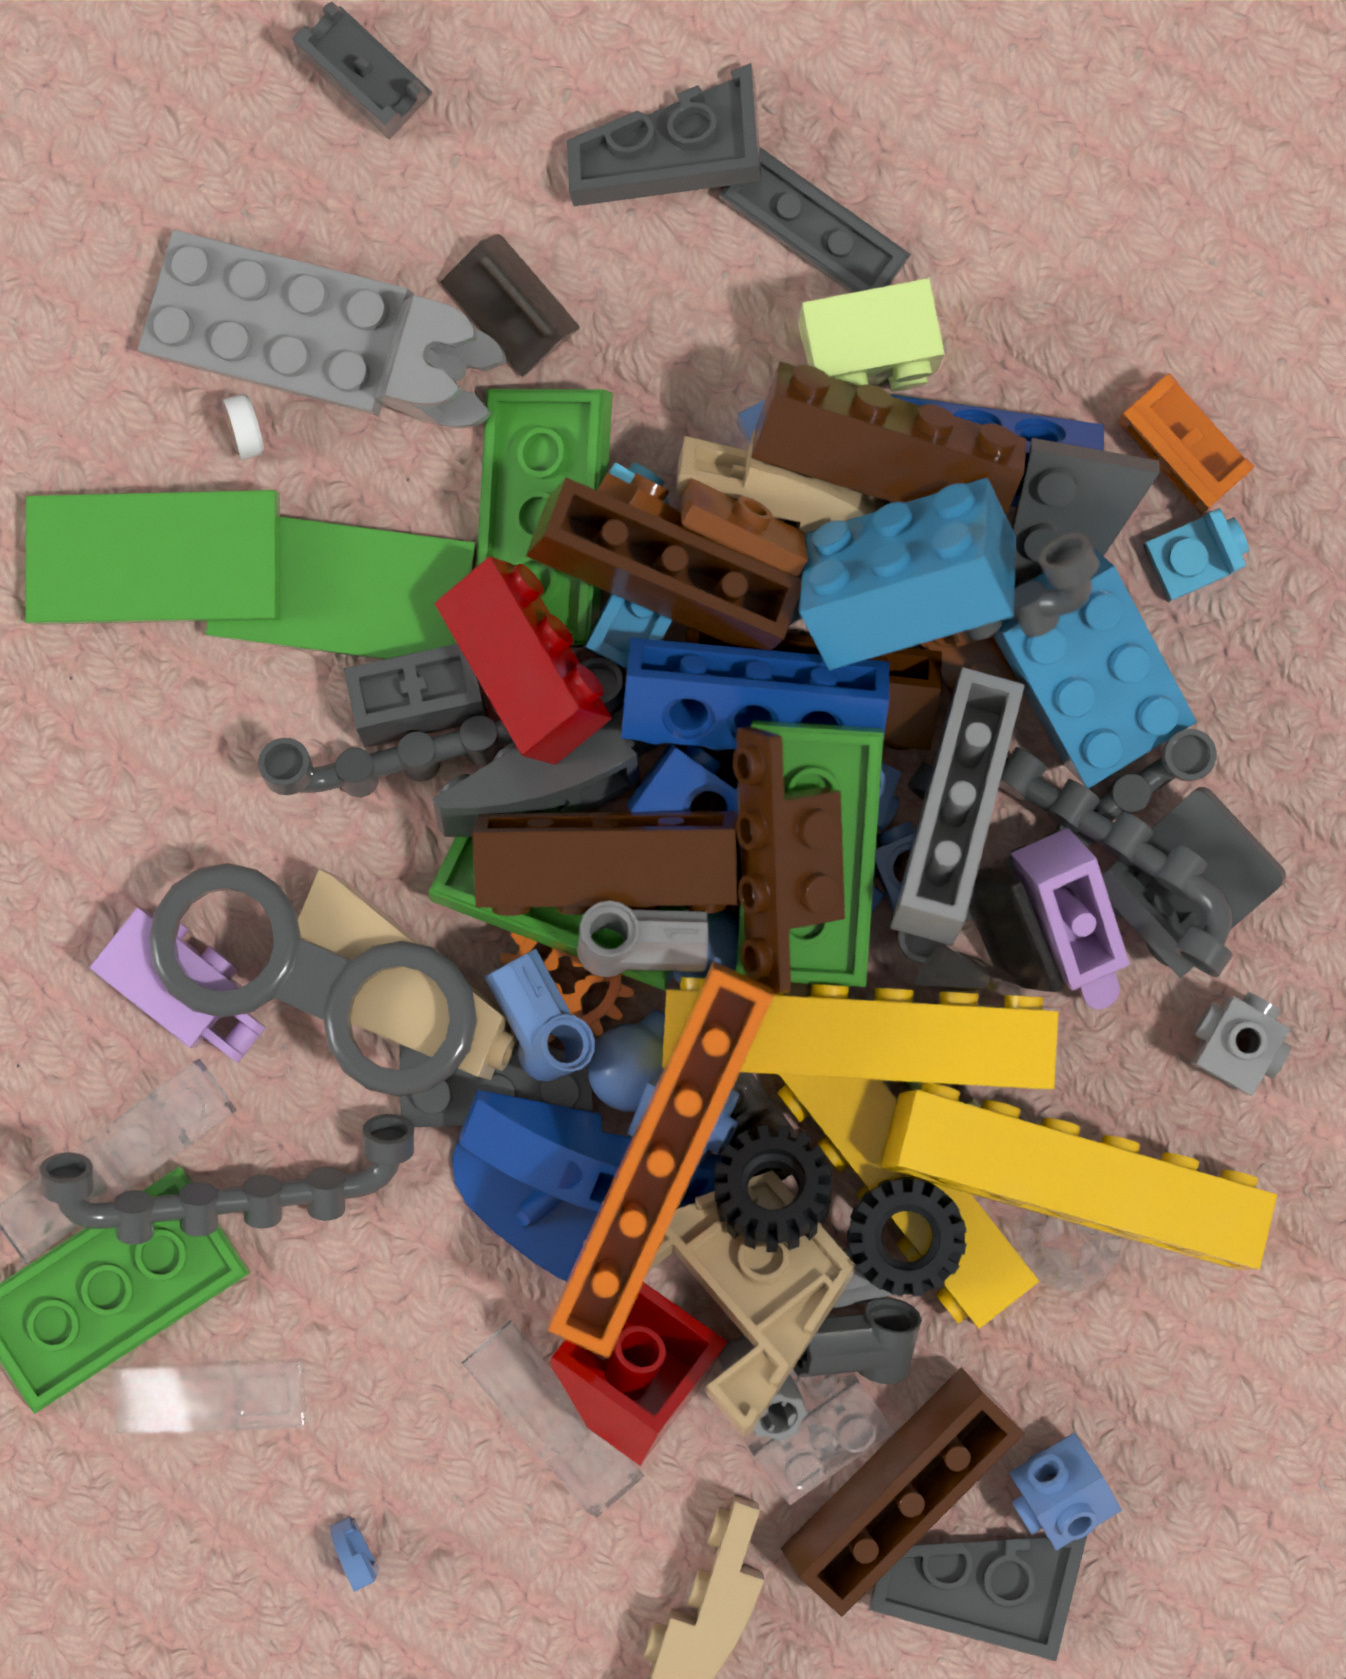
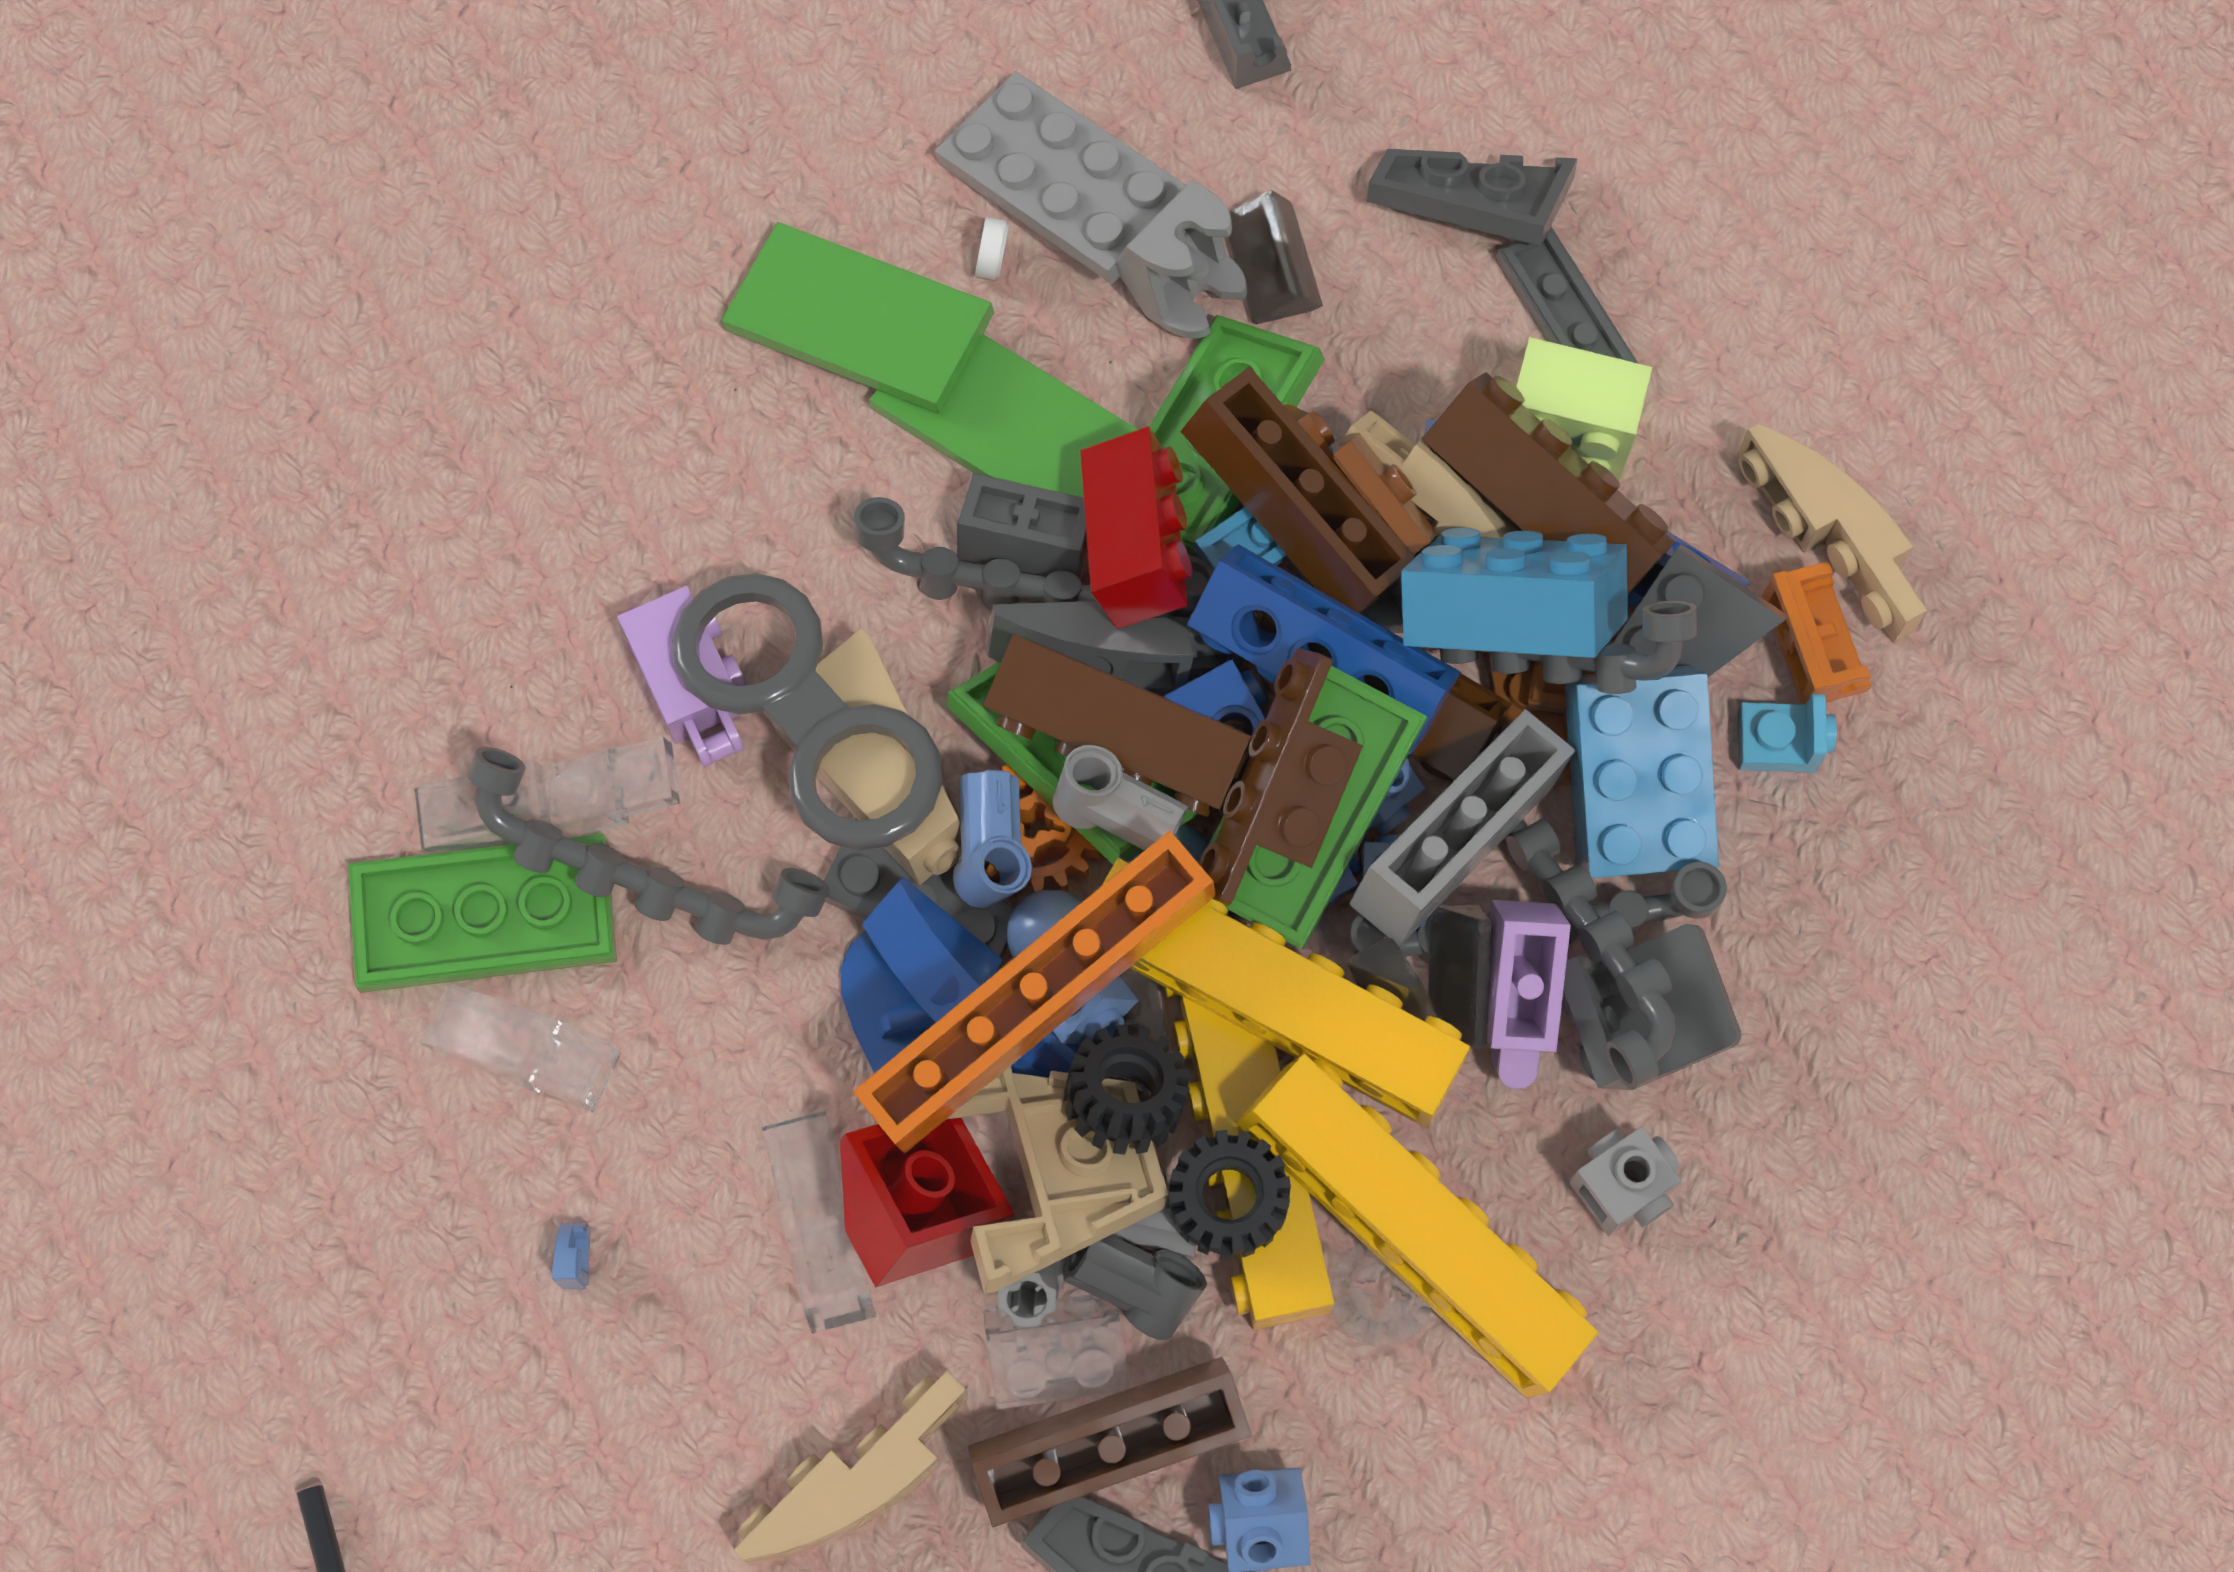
camera: 30 degrees right, 15 degrees down
(1133, 311) = (1824, 504): none -> tan slope

